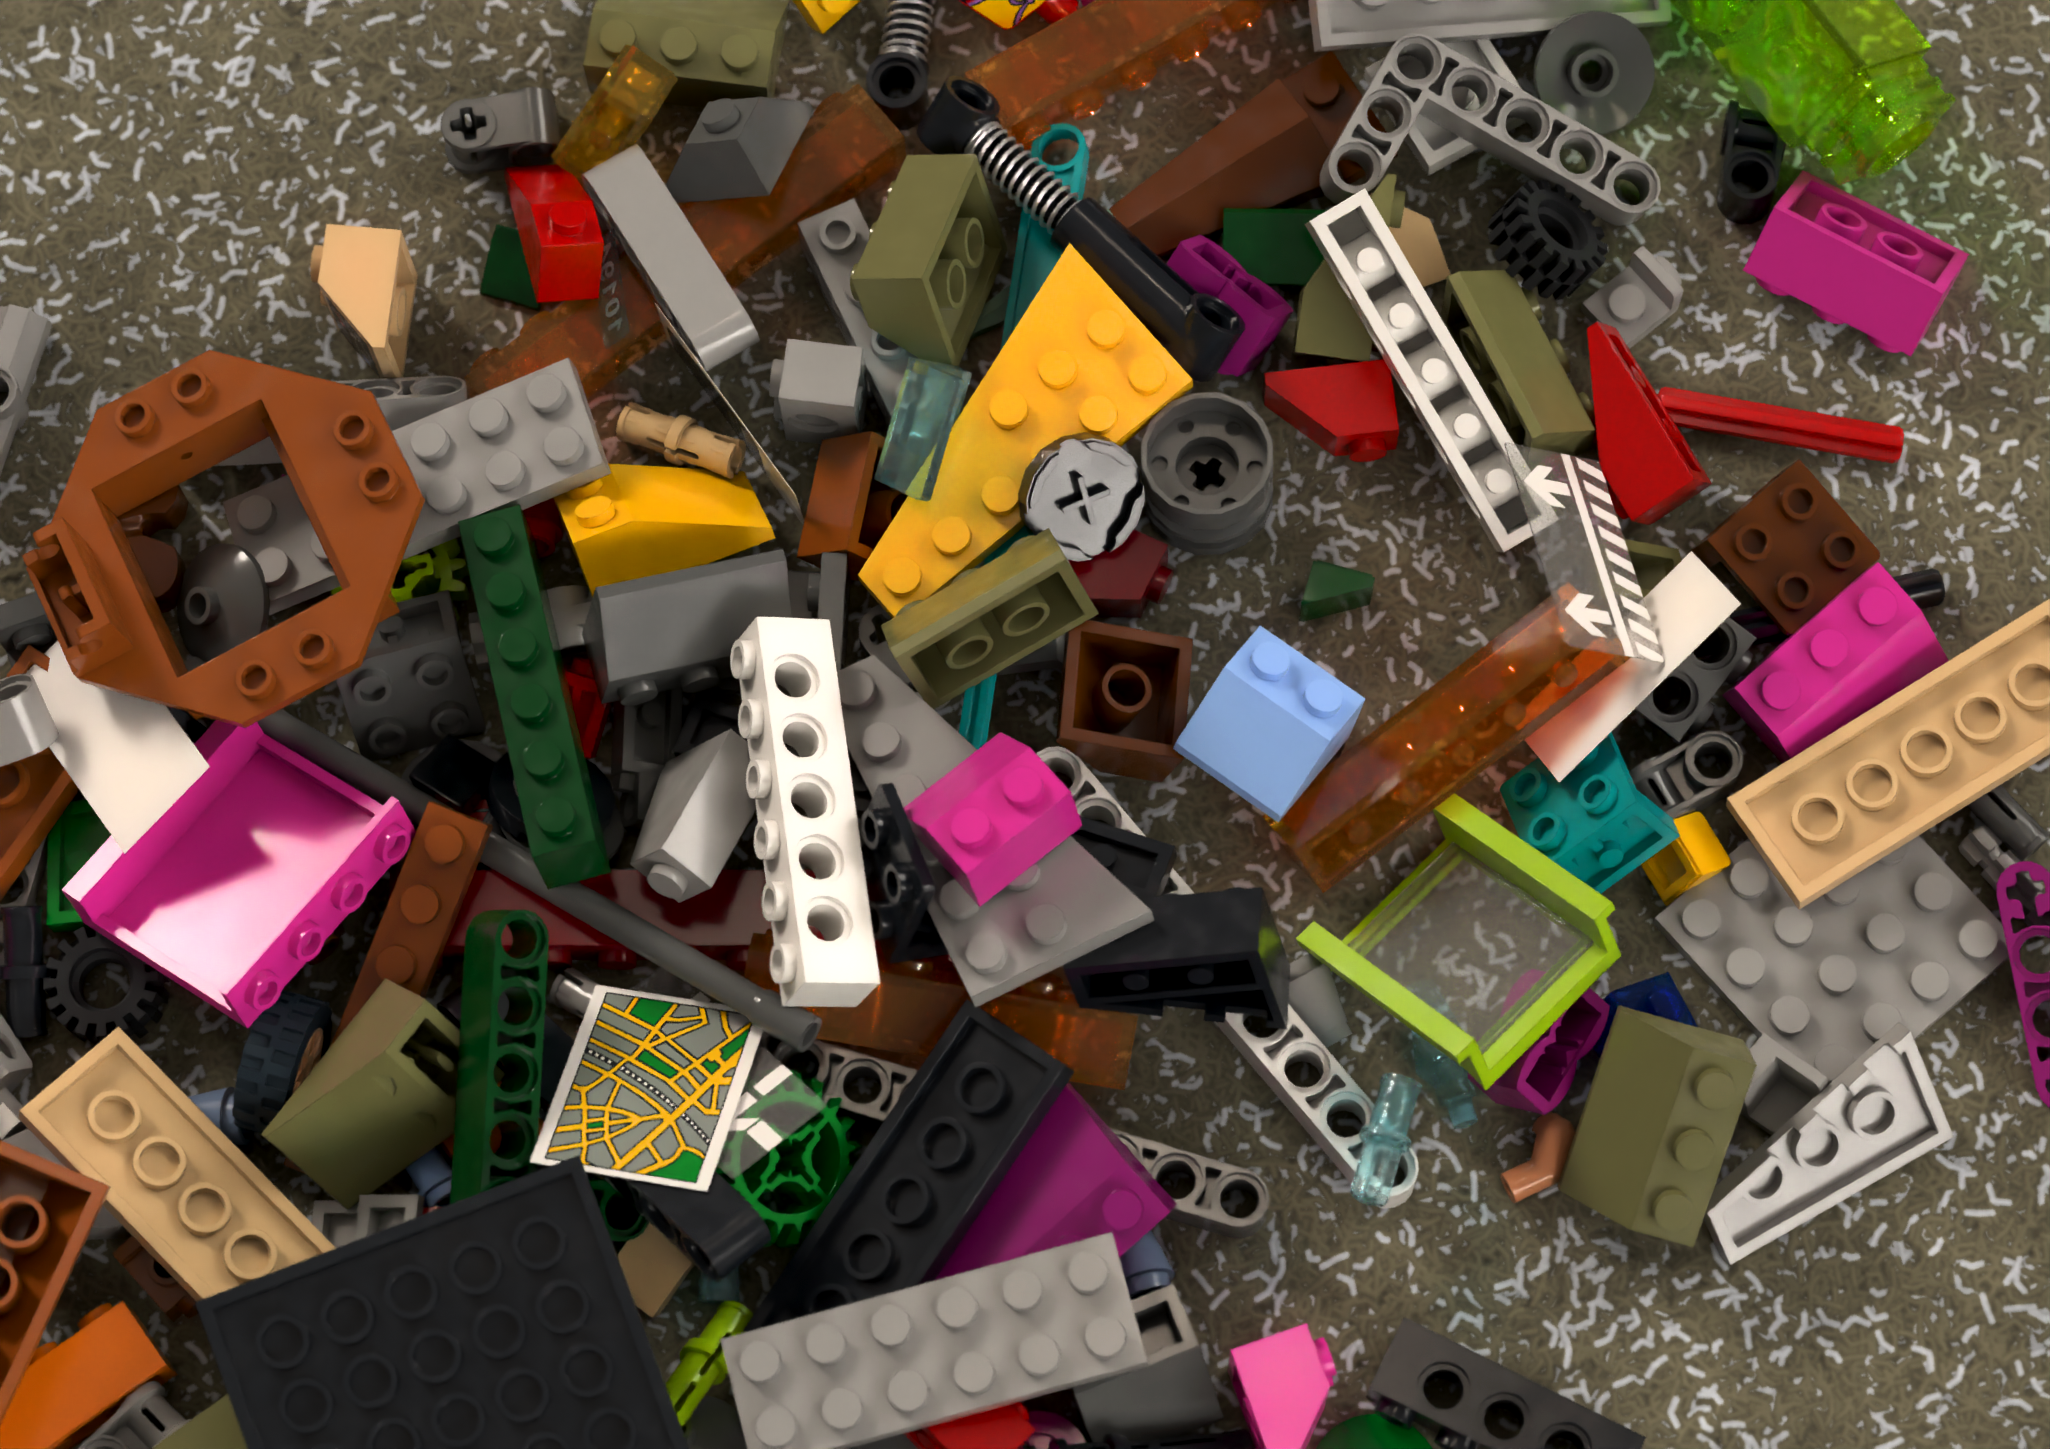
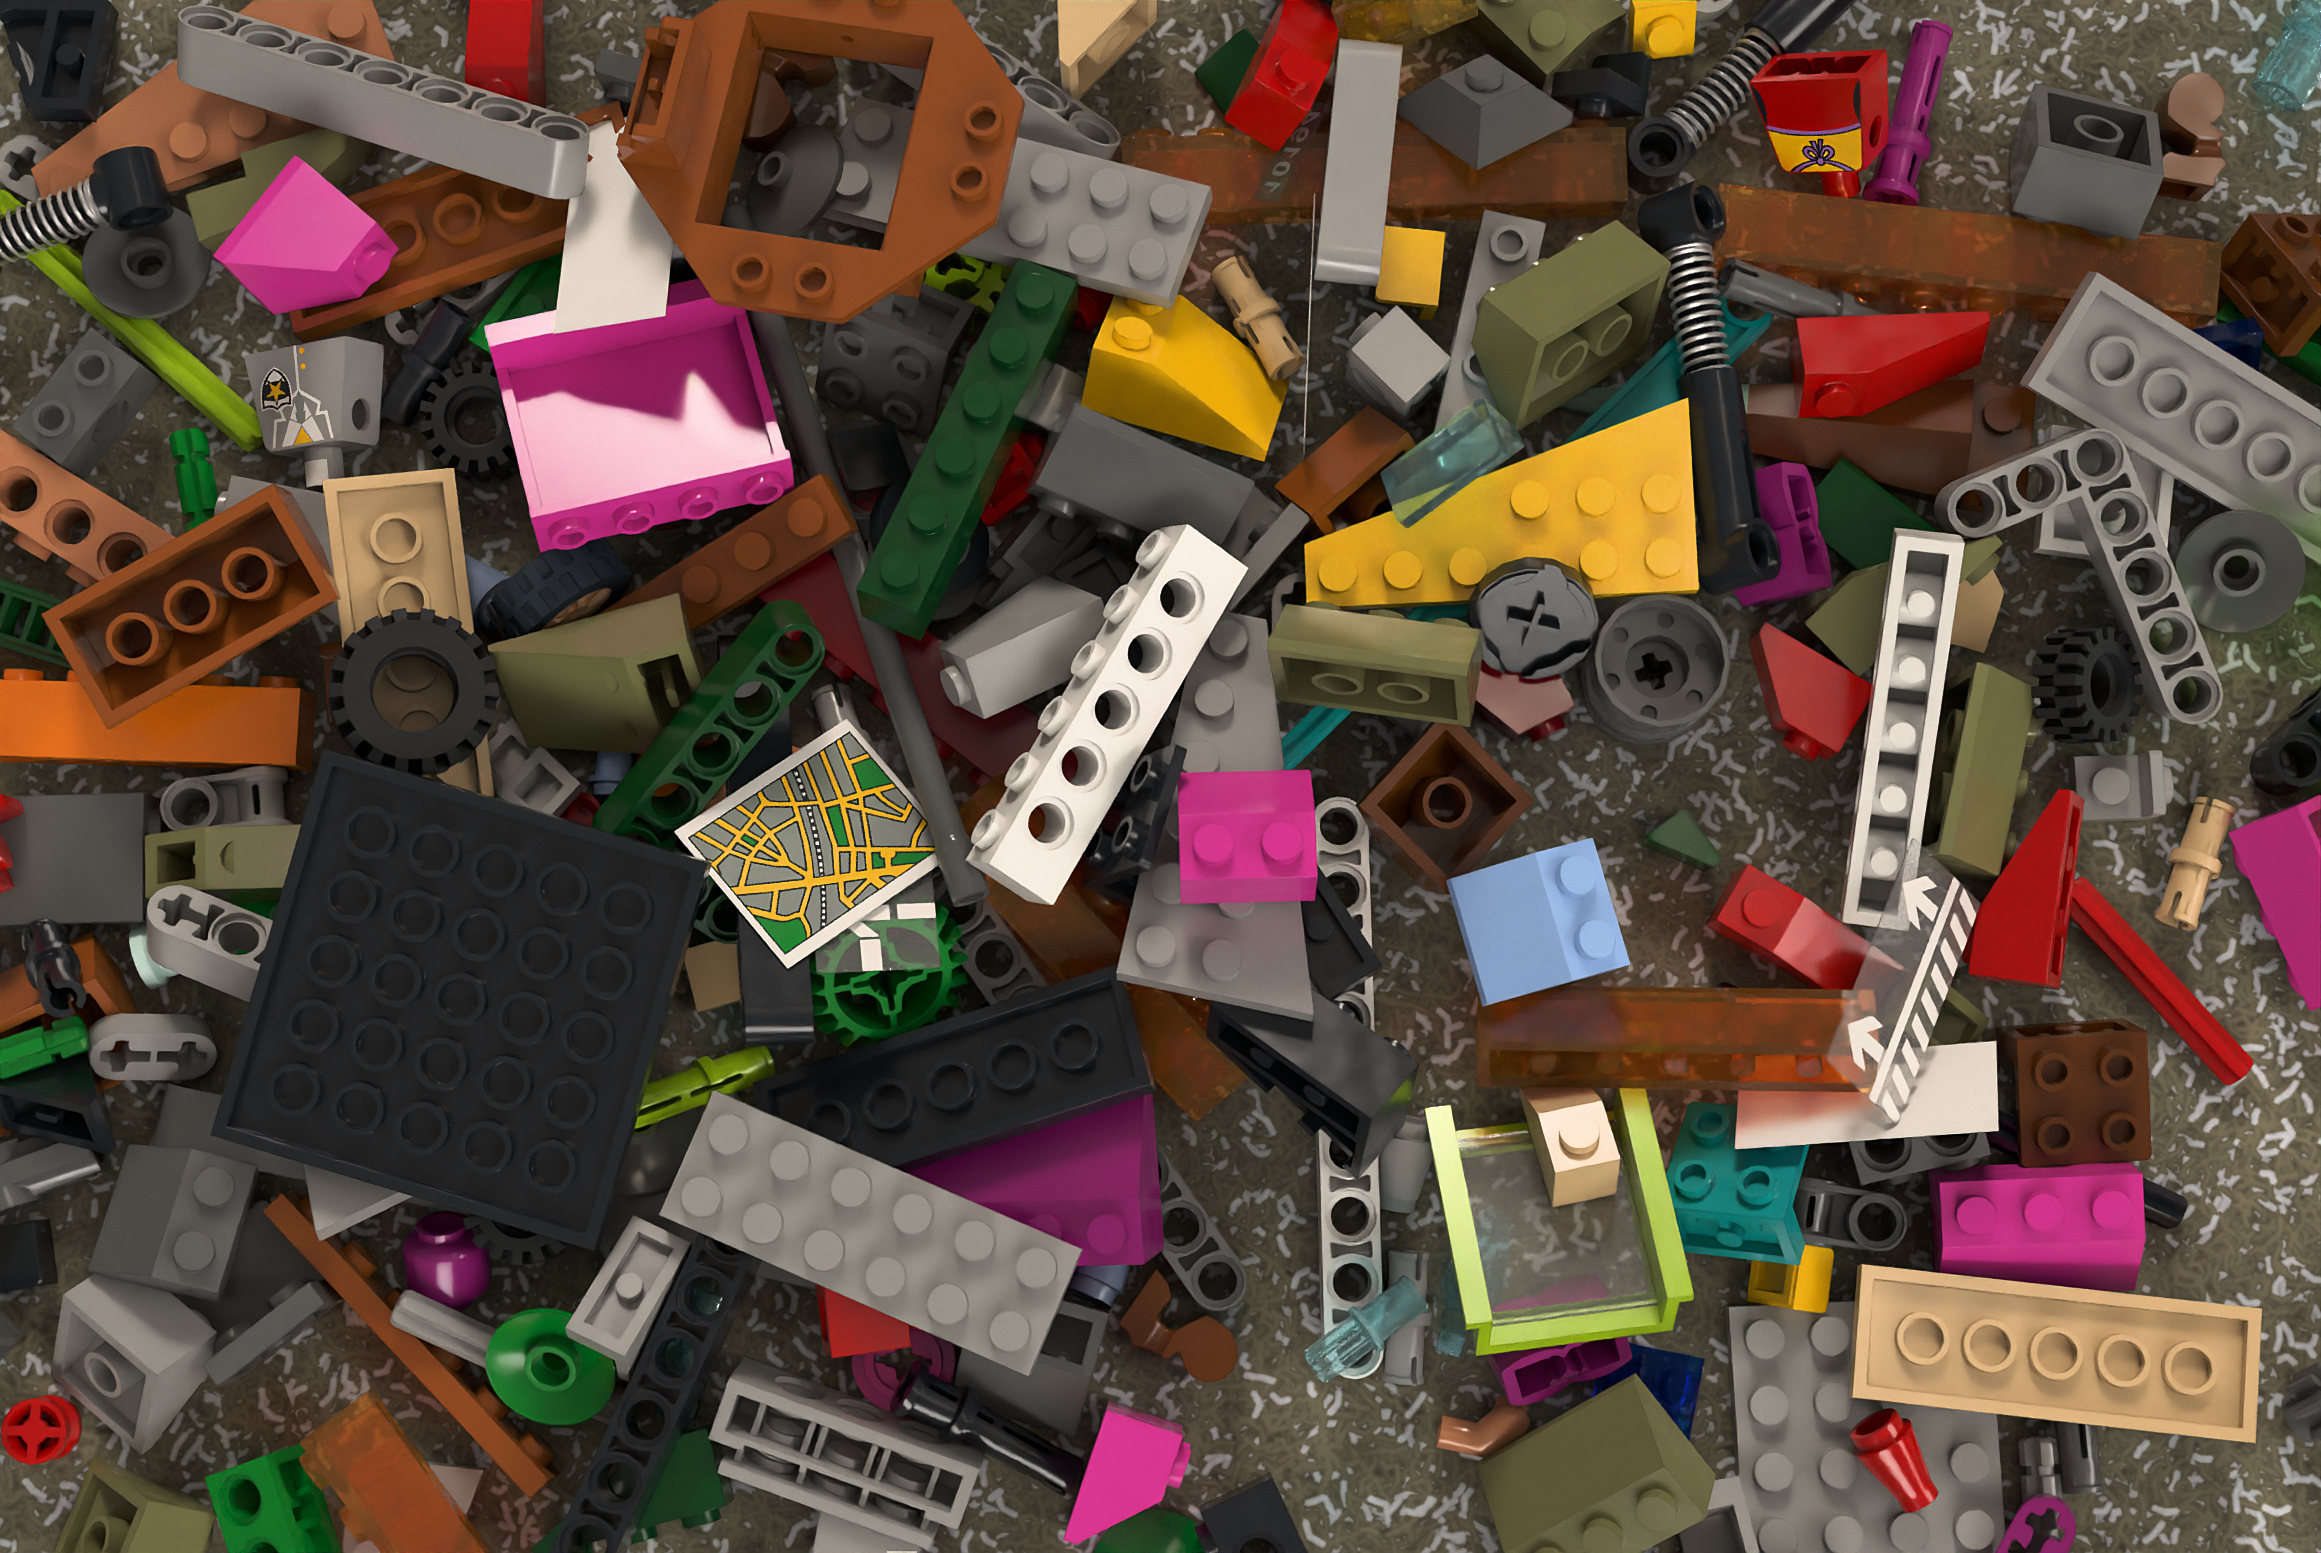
camera: 35 degrees right, 10 degrees up
(233, 1167) = (426, 637): none -> black tyre
(777, 310) = (1411, 269): none -> yellow panel
(820, 65) = (1609, 90): none -> black bracket
(1128, 109) = (1784, 295): none -> dark grey pin
(1192, 116) = (1876, 359): none -> red slope
(1269, 1263) = (1204, 1341): none -> reddish brown leg
(1429, 1142) = (1406, 1347): none -> light grey pin
(1431, 877) = (1572, 1142): none -> tan slope
(1465, 595) = (1788, 931): none -> red slope
(1738, 314) = (2195, 863): none -> tan pin
(1869, 926) = (1893, 1455): none -> red cone

